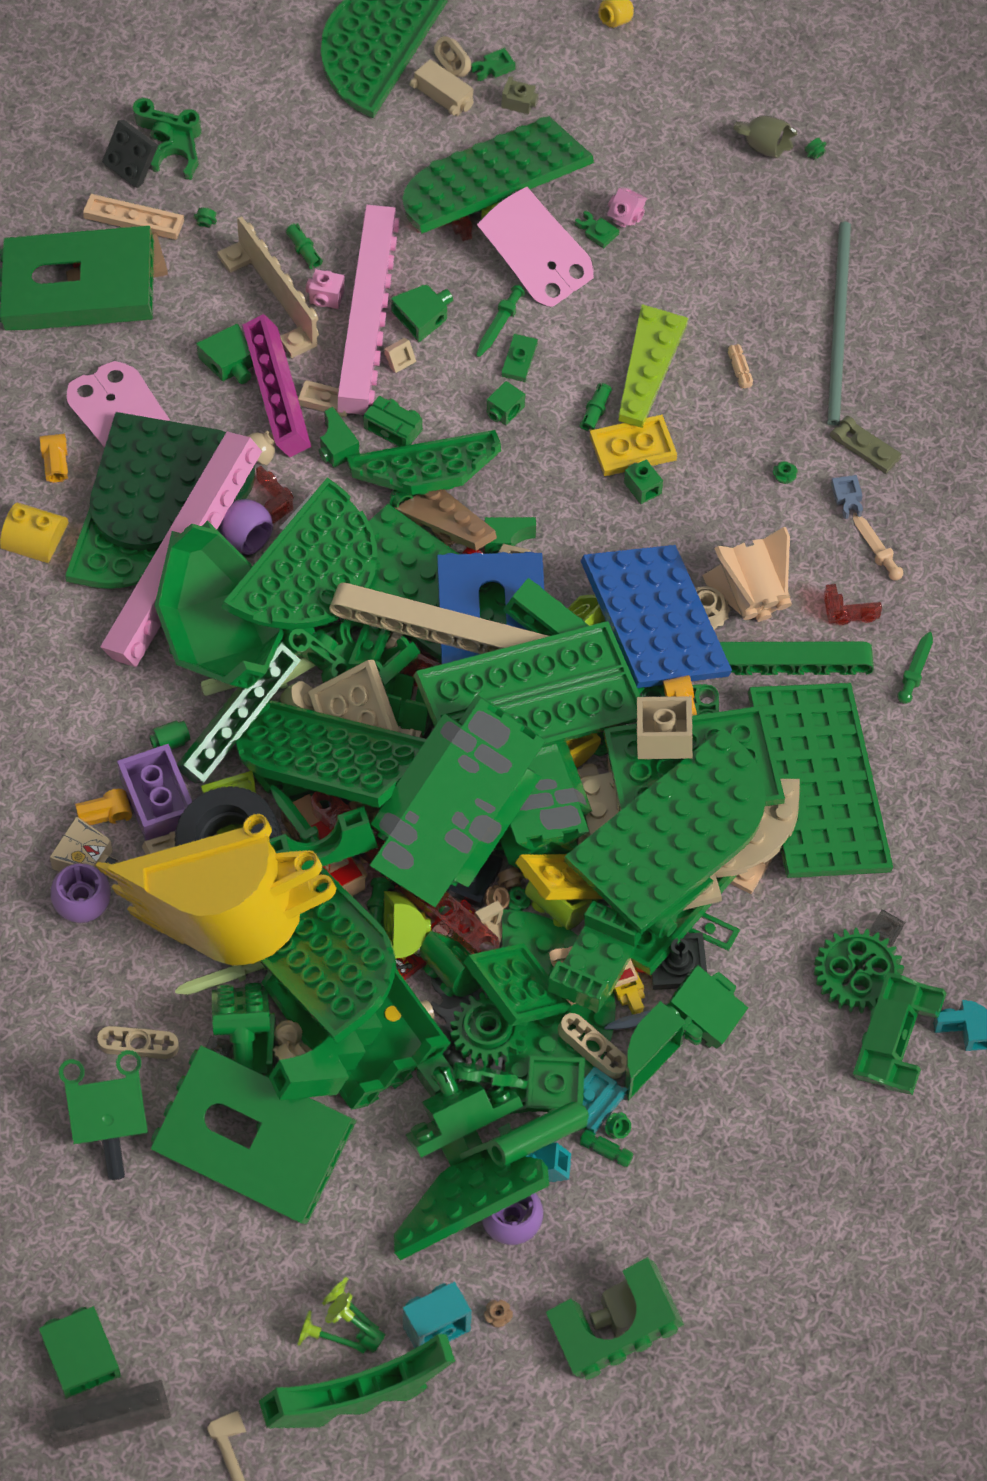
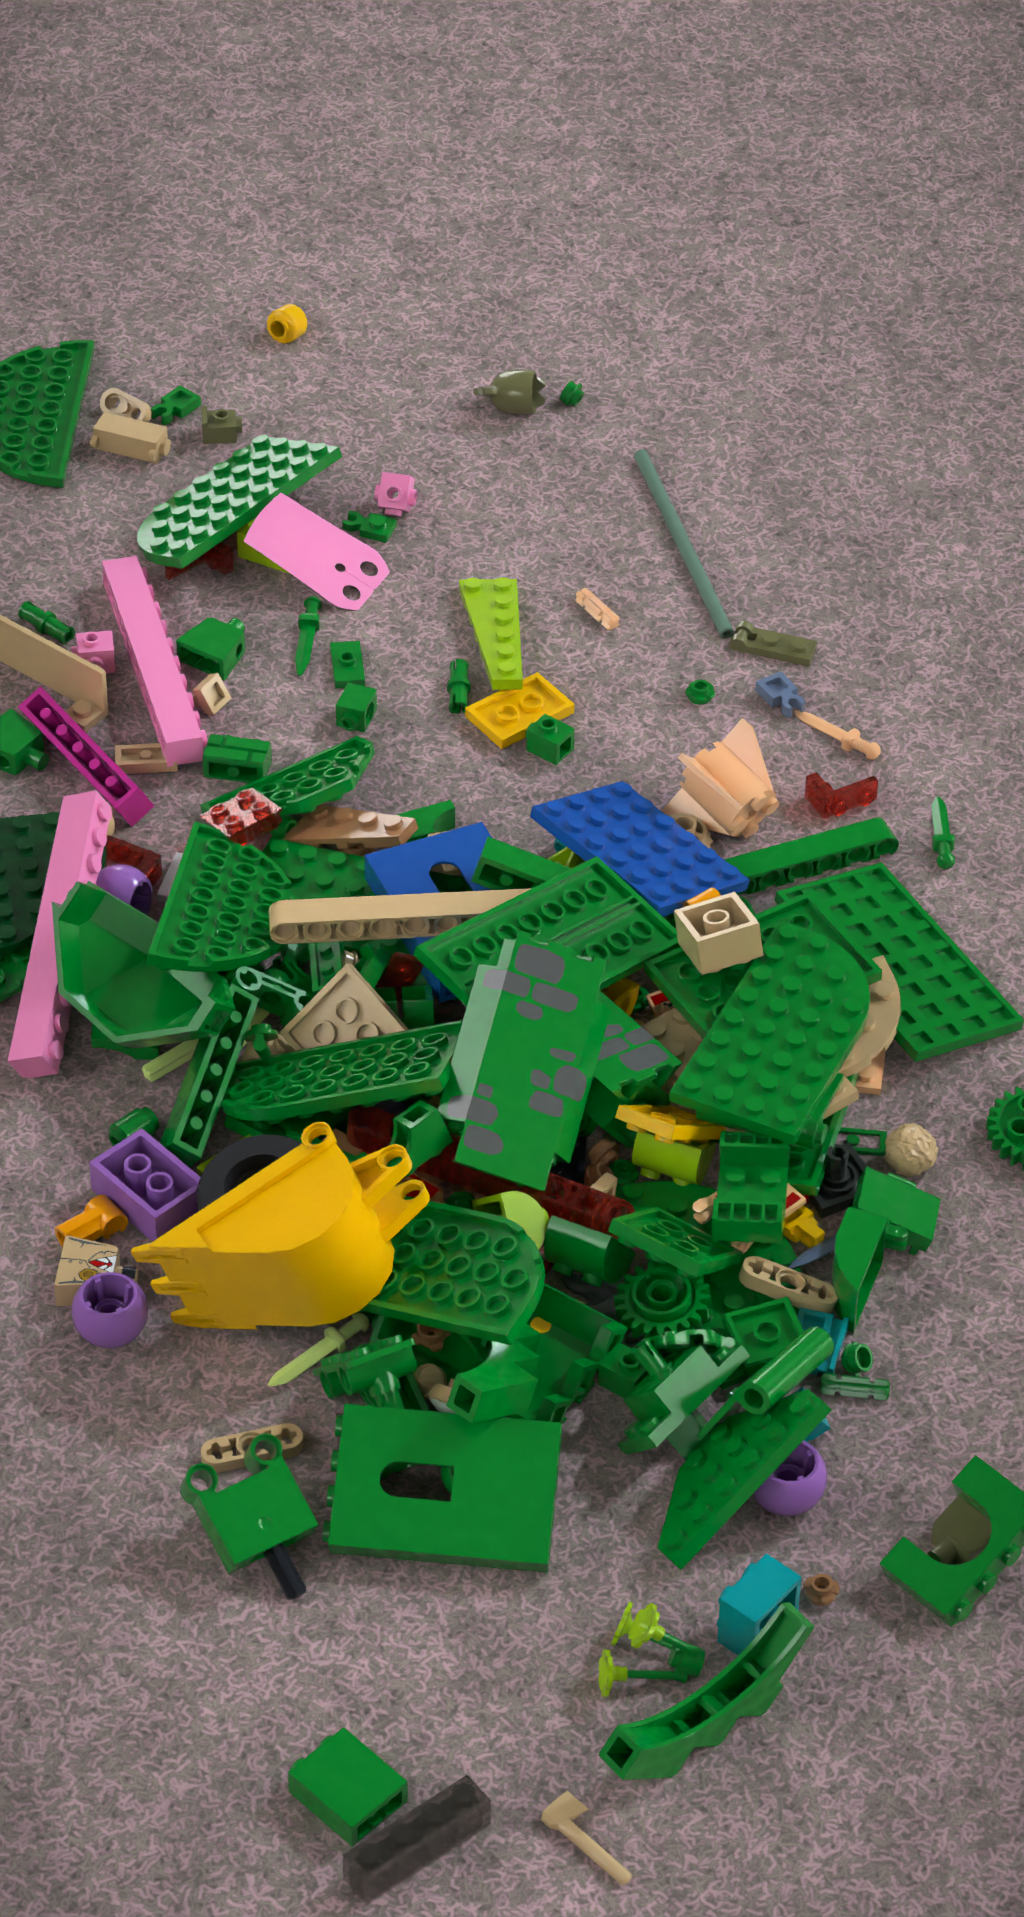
camera: 20 degrees left, 15 degrees down
(289, 696) = (260, 1035): none -> green plate
(338, 440) = (181, 790): green arch -> none
(367, 481) = (243, 814): none -> clear red hinge
(745, 956) = (910, 1149): none -> tan piece

